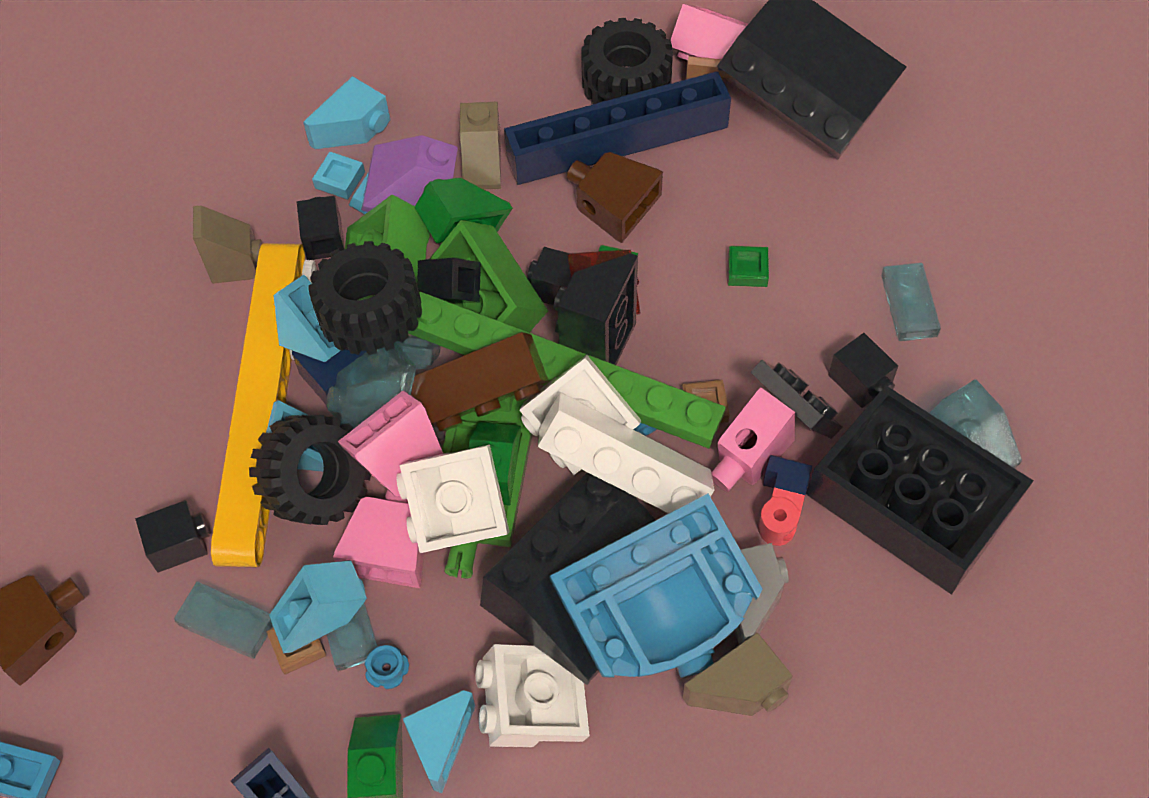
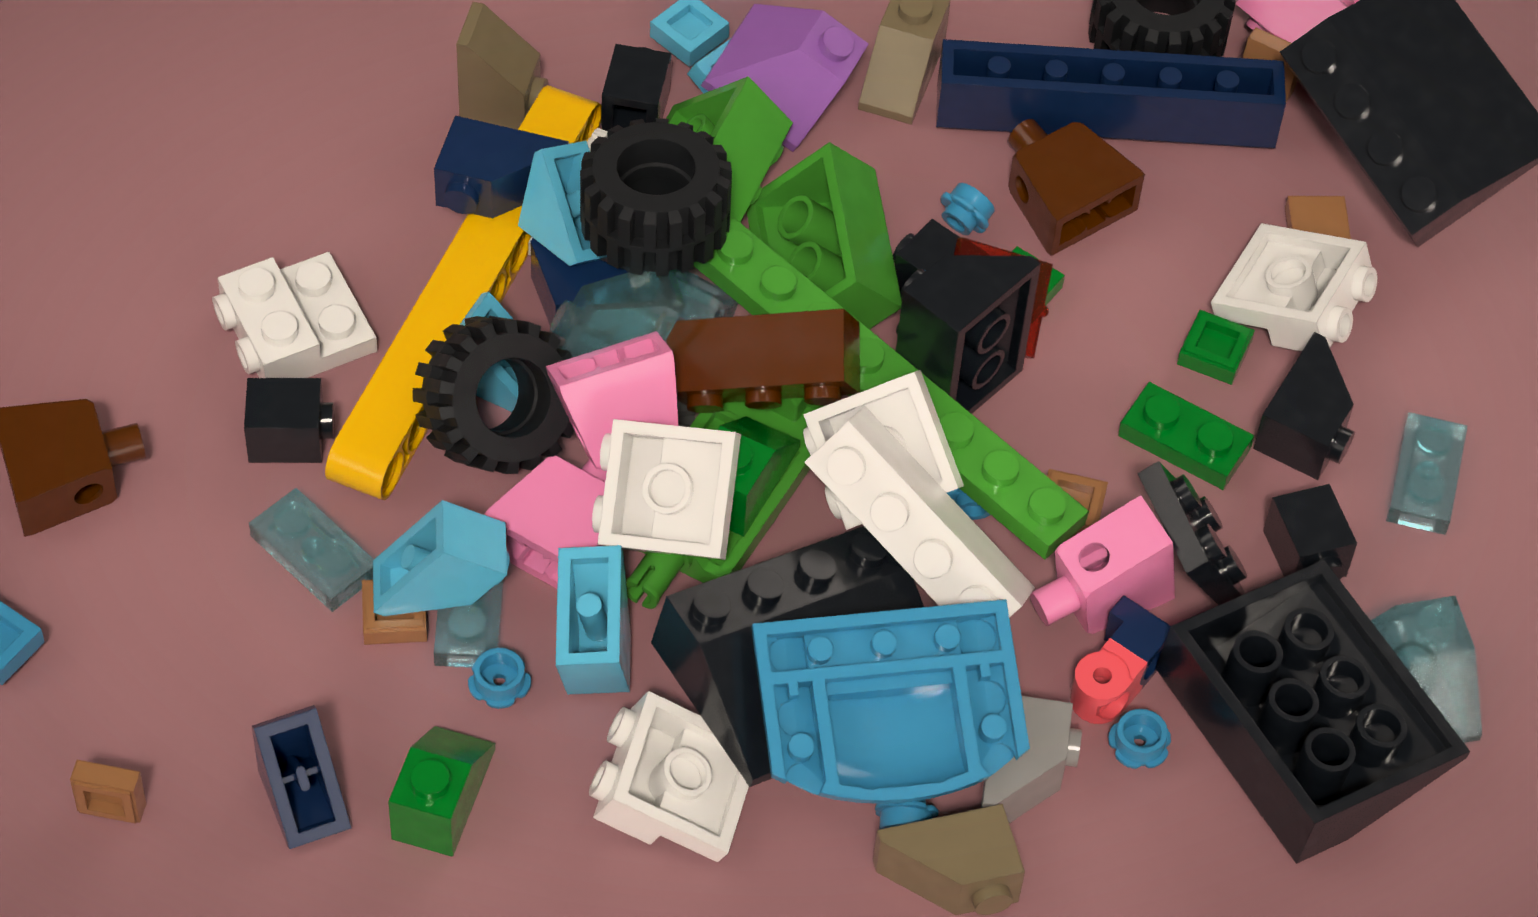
camera: 15 degrees right, 5 degrees down
(151, 461) = (293, 318): none -> white plate
(244, 314) = (485, 167): none -> dark blue slope
(435, 604) = (593, 620): none -> medium azure slope
(439, 734) = (536, 780): medium azure slope -> none
(450, 279) = (783, 217): black brick -> none
(456, 199) = (837, 113): green slope -> none
(559, 231) = (966, 209): none -> dark azure plate
(755, 330) = (1186, 435): none -> green plate
(774, 166) = (1318, 215): none -> medium nougat tile
(783, 210) = (1297, 285): none -> white plate
(825, 539) = (1145, 726): none -> dark azure plate
(827, 289) = (1308, 414): none -> black slope

